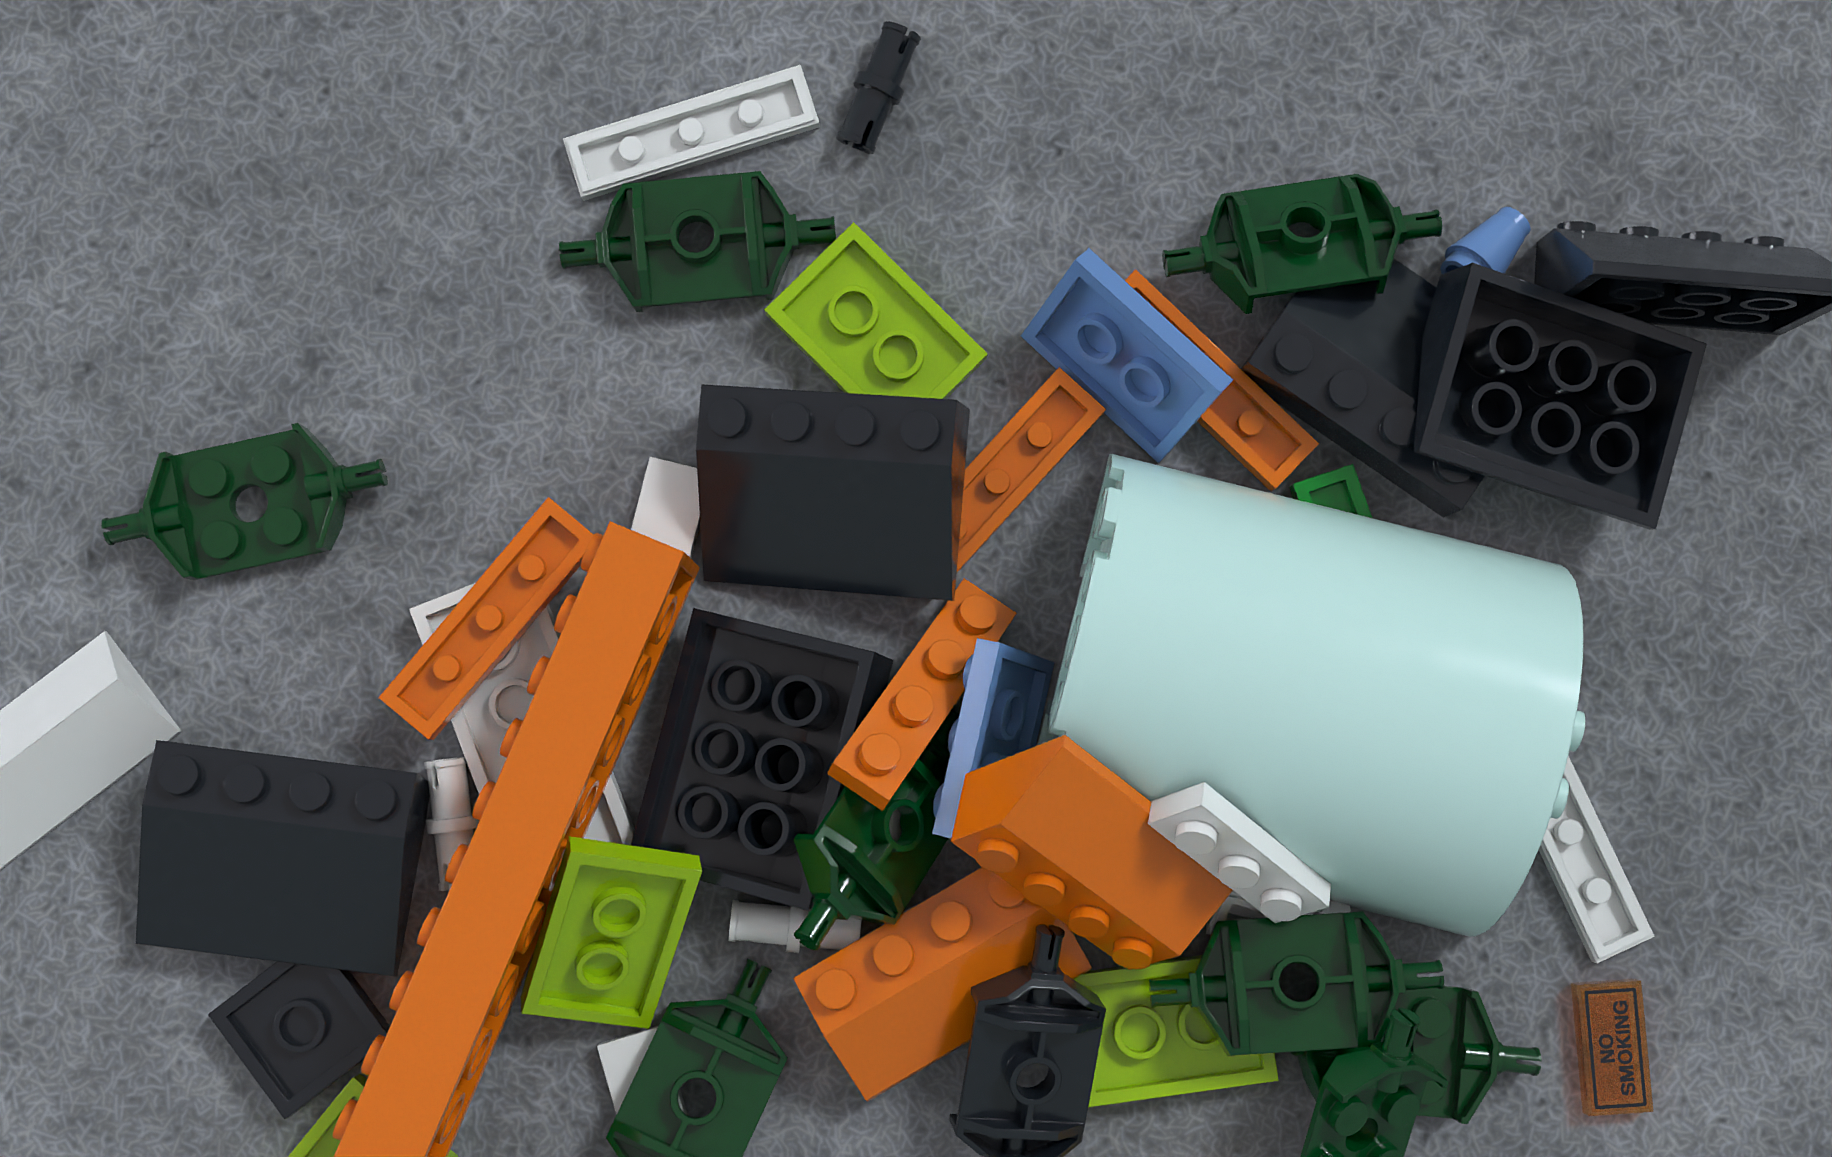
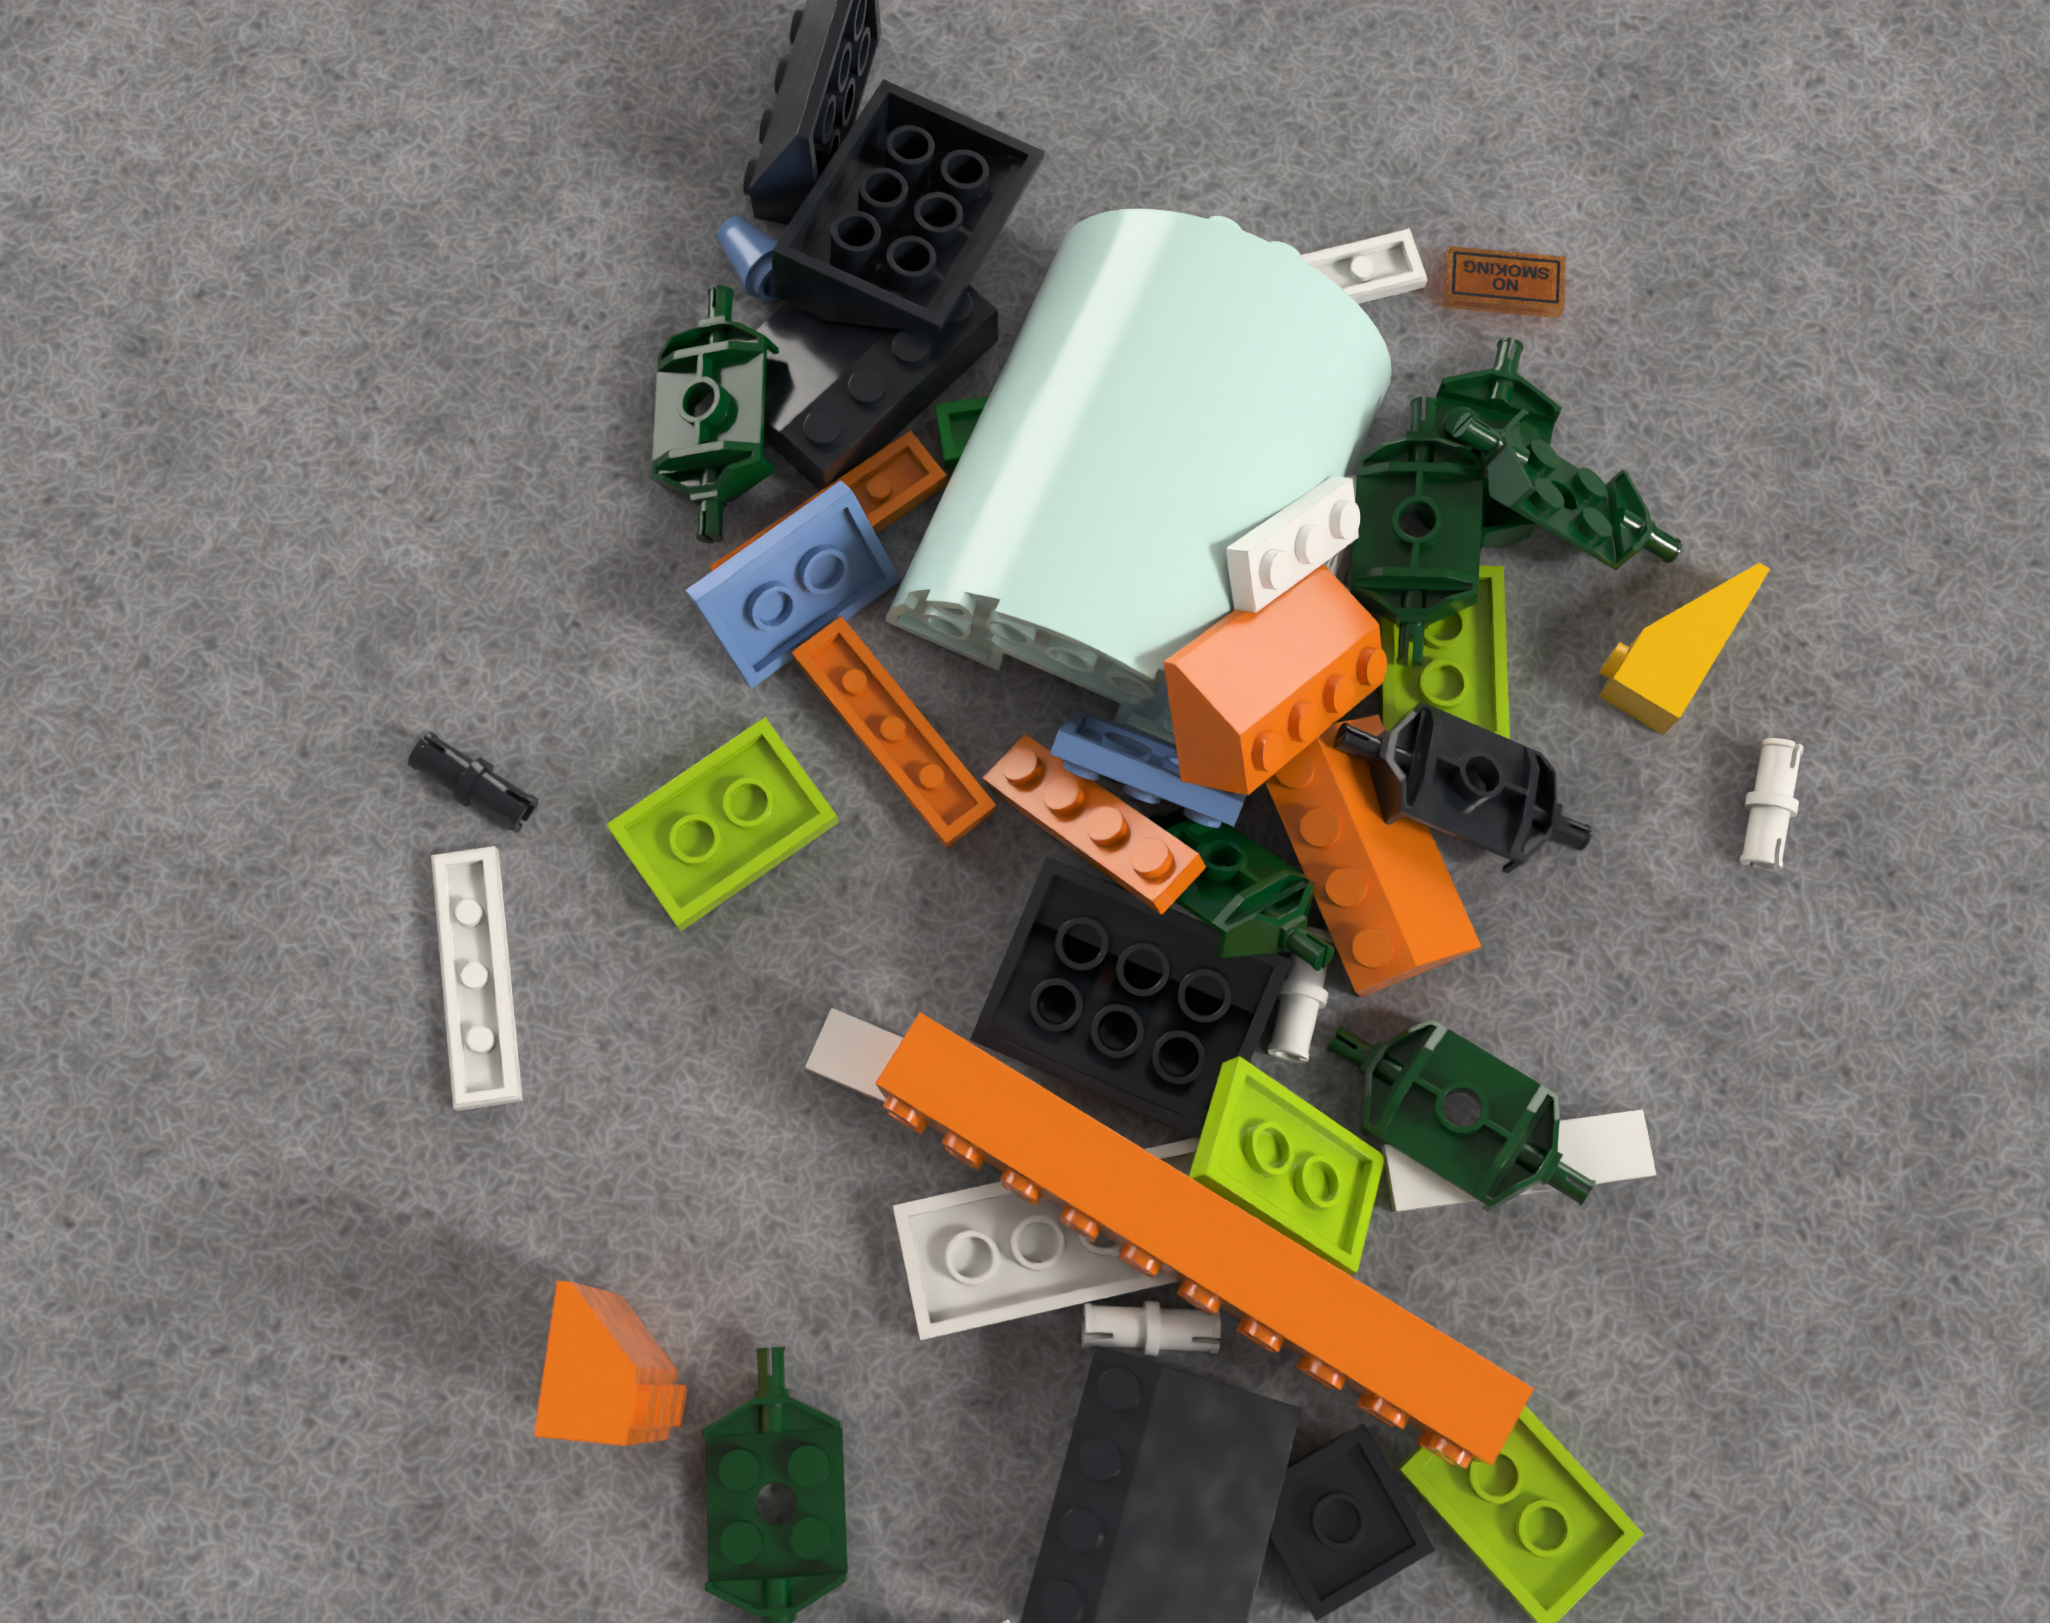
camera: 80 degrees left, 10 degrees down
(309, 324) = (605, 1373): none -> orange slope
(488, 620) = (947, 1247): orange plate -> none
(743, 261) = (598, 1037): dark green plate -> none
(831, 490) = (875, 883): black slope -> none

